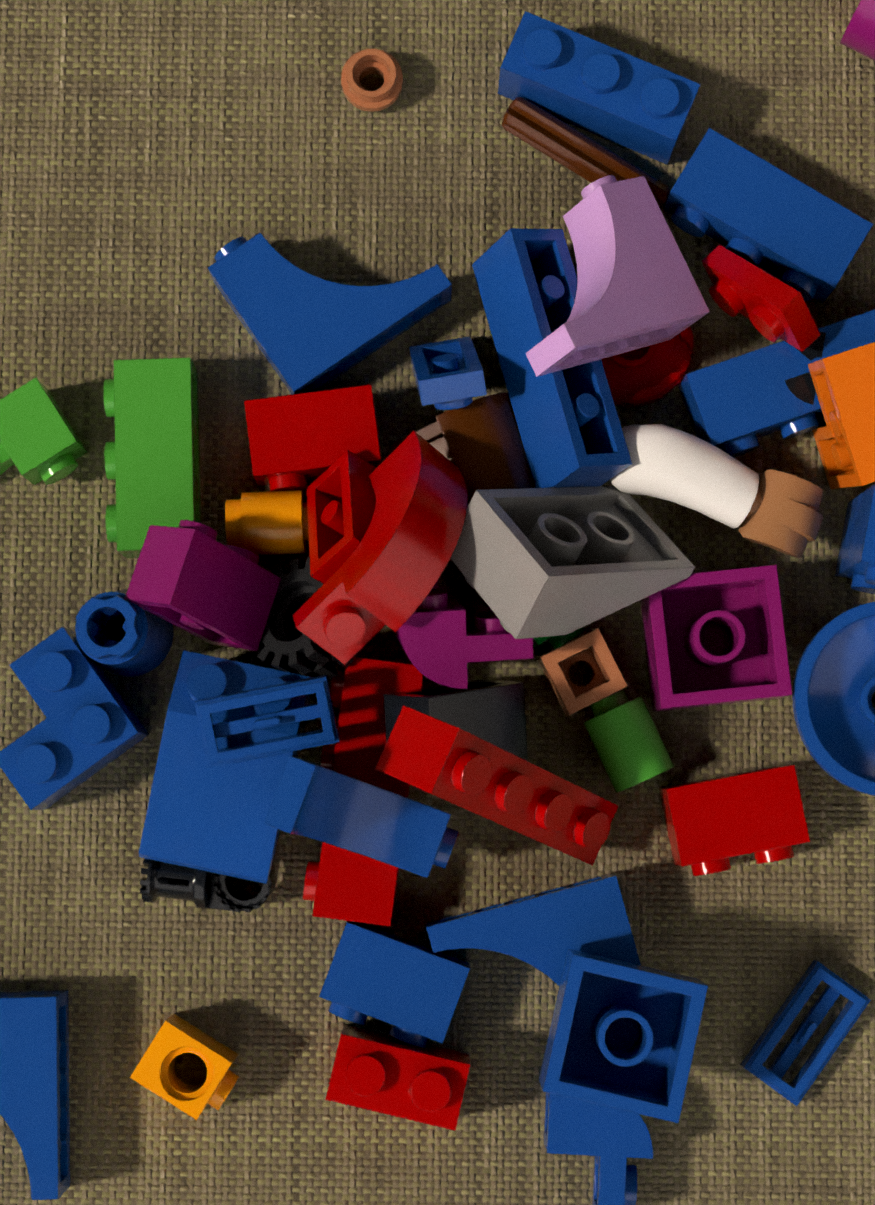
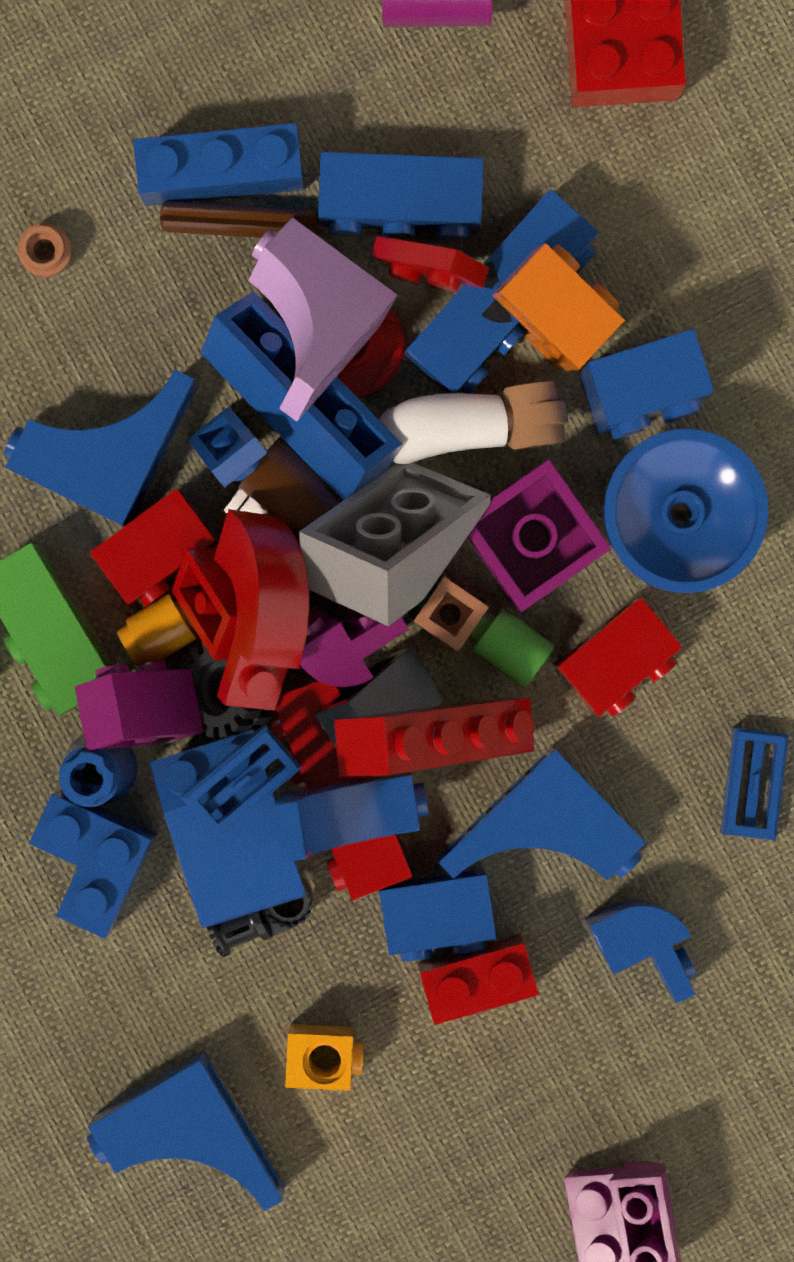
camera: 30 degrees left, 5 degrees up
(623, 1035) = (620, 863): blue brick -> none

